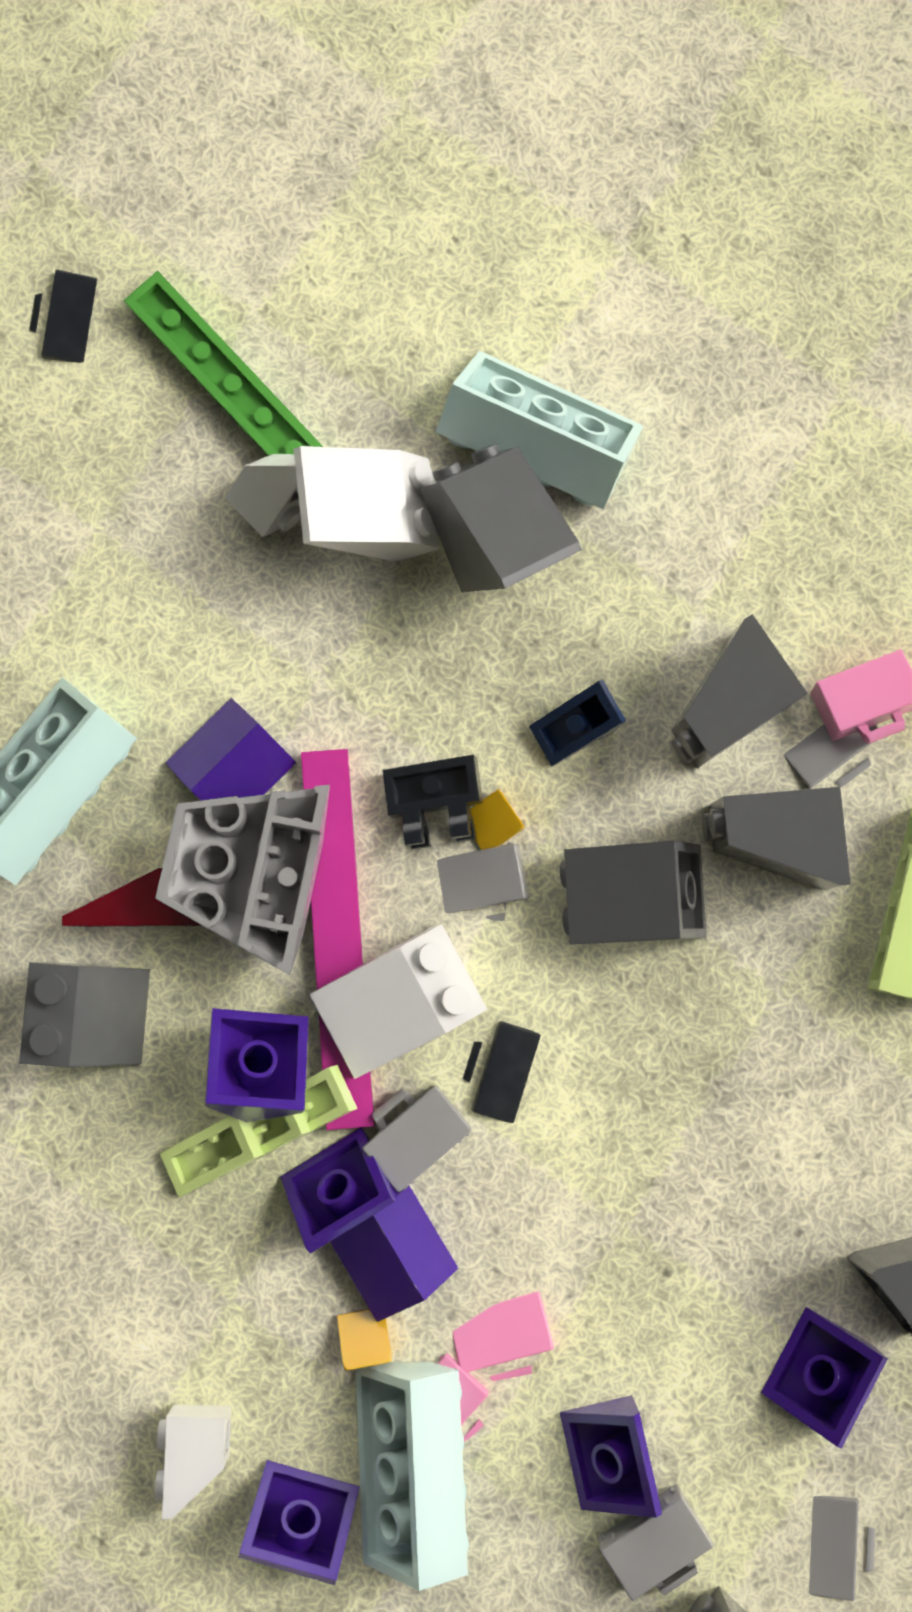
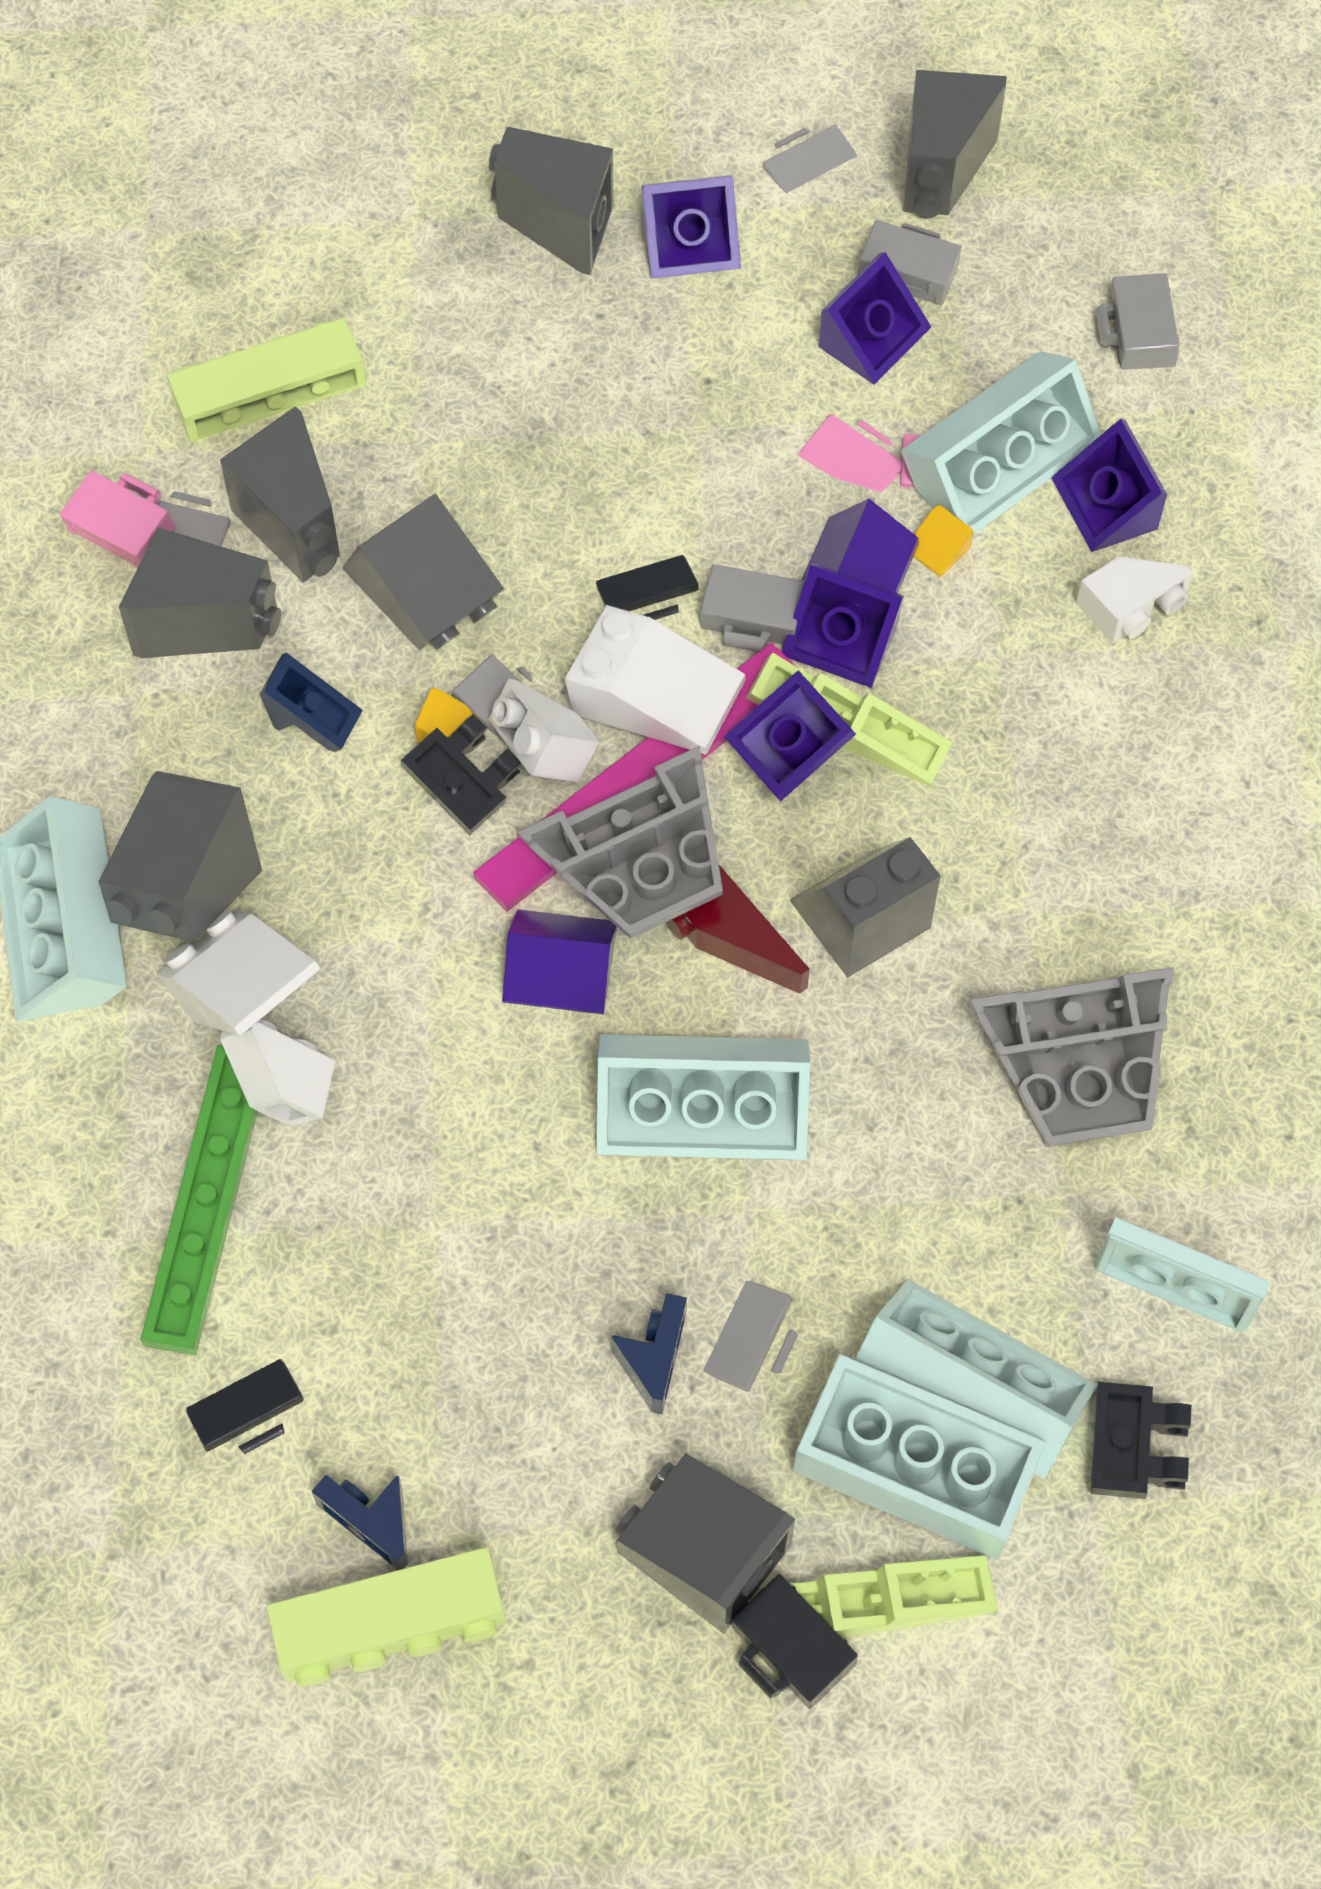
camera: 125 degrees left, 20 degrees down
(417, 880) = (543, 733): none -> white slope

